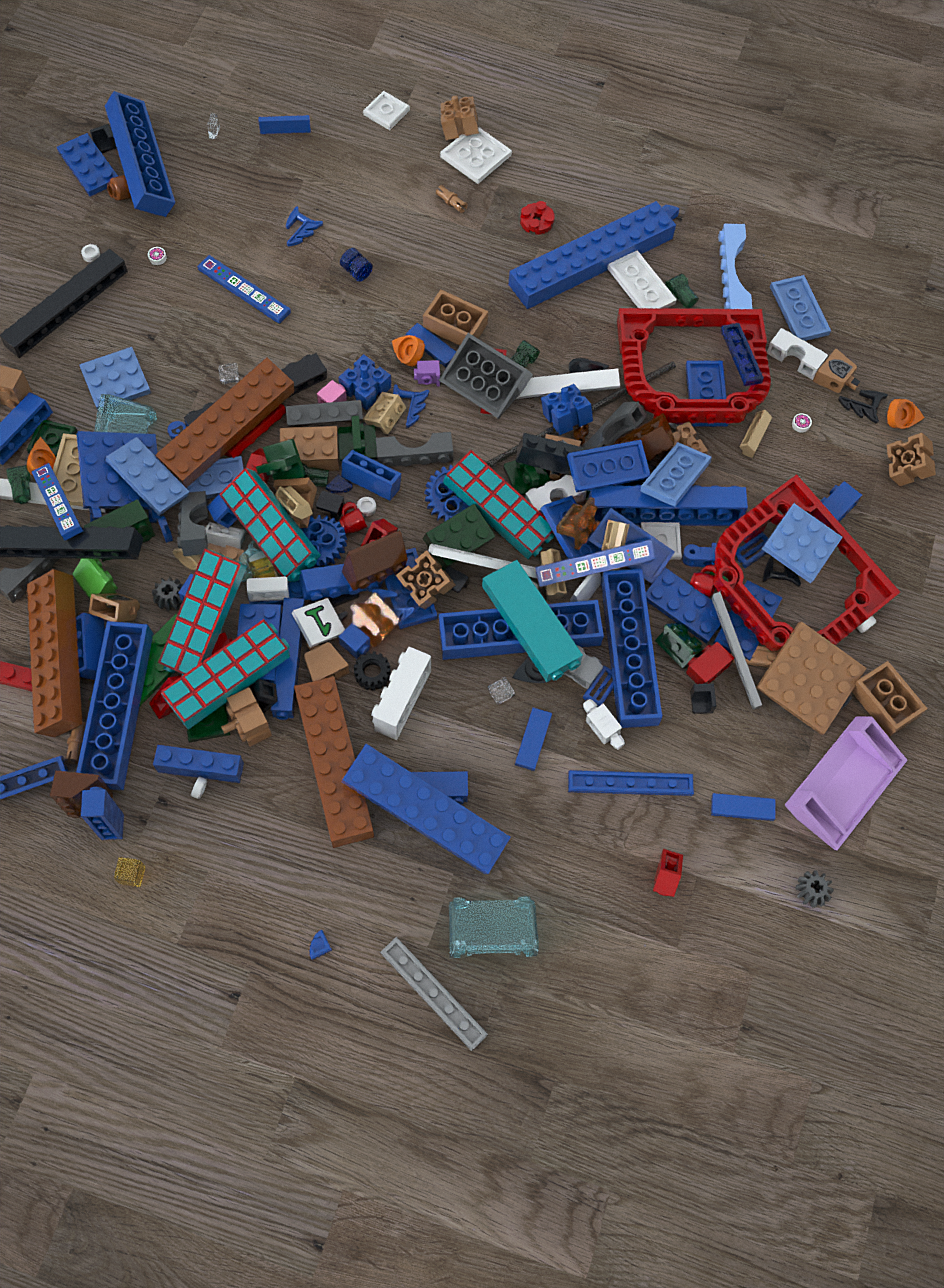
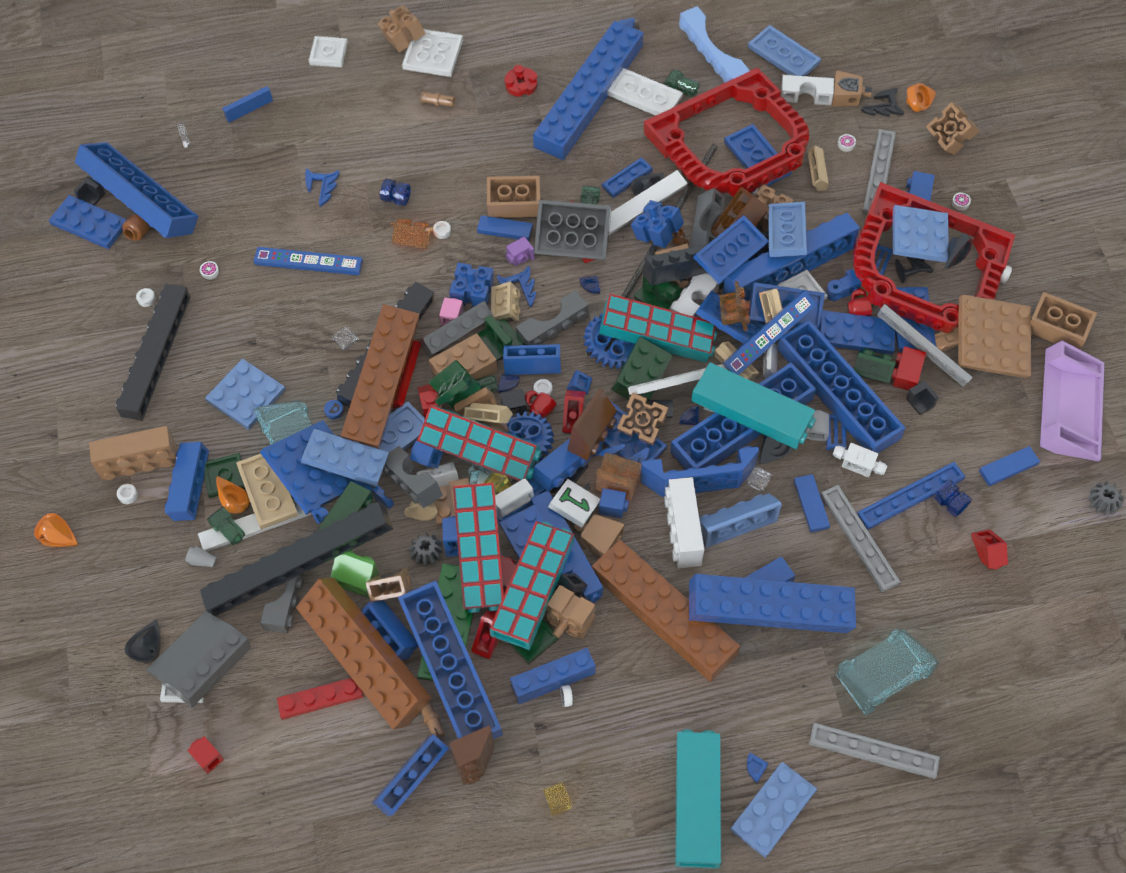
camera: 25 degrees left, 5 degrees down
(57, 501) = (281, 519): blue tile -> none
(102, 814) = (509, 758): blue brick -> none
(247, 943) = (698, 800): none -> teal brick
(308, 992) = (773, 809): none -> medium blue plate
(345, 307) = (410, 233): none -> clear orange bracket
(372, 659) = (641, 530): black tyre -> none
(376, 319) = (442, 229): none -> white tile
(402, 518) = (580, 382): none -> blue slope
(409, 349) = (490, 240): orange piece -> none
(452, 664) = (704, 479): none -> blue slope
(453, 717) = (739, 519): none -> medium blue slope
(473, 434) = (590, 284): none -> clear blue tile
(478, 601) = (690, 416): none -> clear blue tile
(555, 796) = (860, 538): none -> light grey tile
(564, 354) = (623, 179): none -> blue tile
(665, 809) = (952, 498): none -> clear blue wheel
(742, 354) = (770, 109): clear blue plate -> none
(824, 455) = (880, 164): none -> light grey tile
(826, 578) = (958, 250): none -> black piece
(874, 534) = (961, 201): none -> tile

